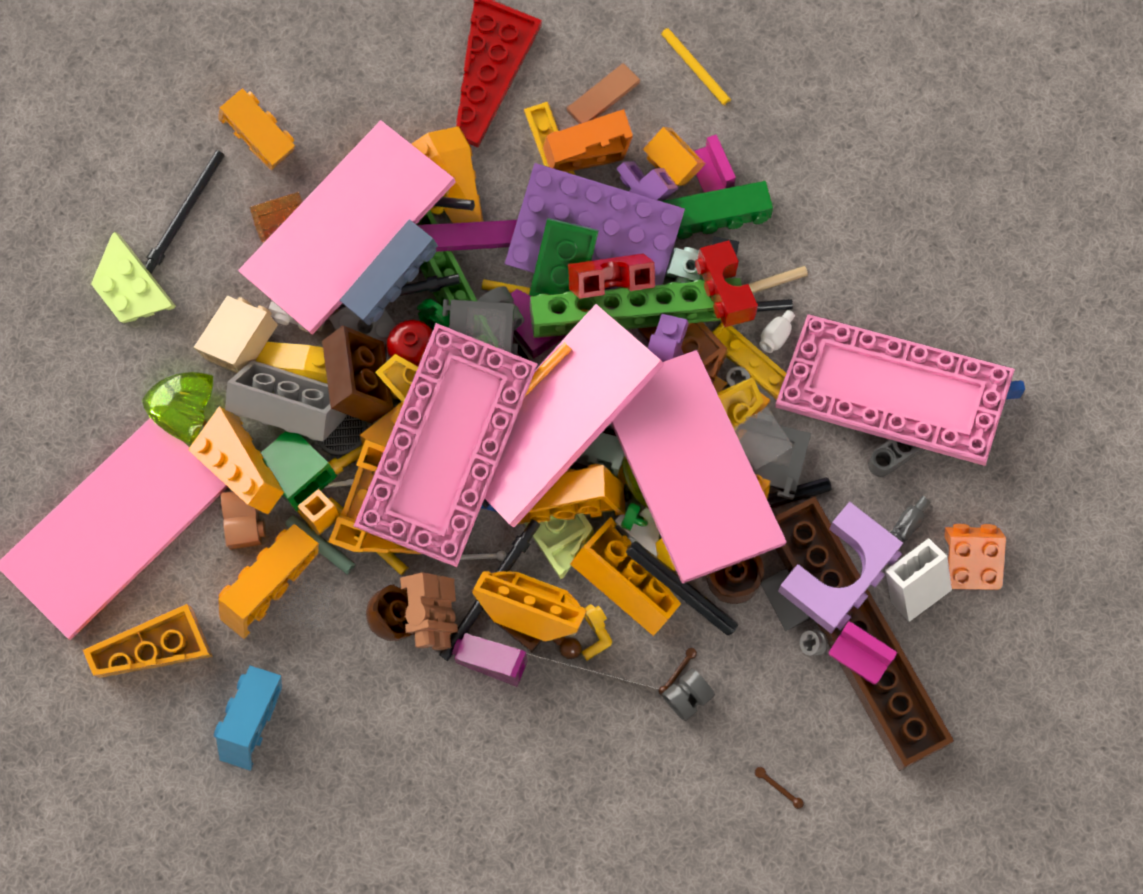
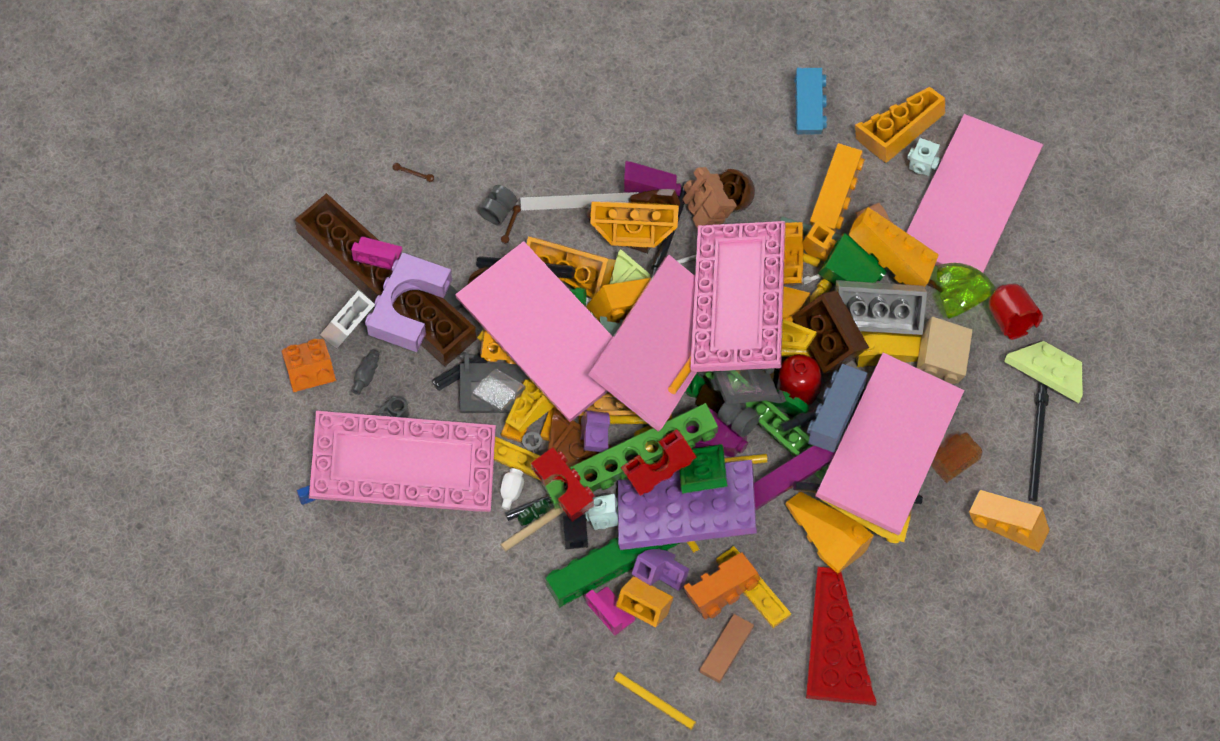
camera: 160 degrees right, 10 degrees down
(135, 357) = (1014, 310): none -> red cylinder
(144, 590) = (924, 157): none -> light aqua brick
(499, 634) = (659, 196): none -> reddish brown slope
(595, 618) = (583, 235): yellow plate -> none
(763, 296) = (529, 513): none -> dark green piece

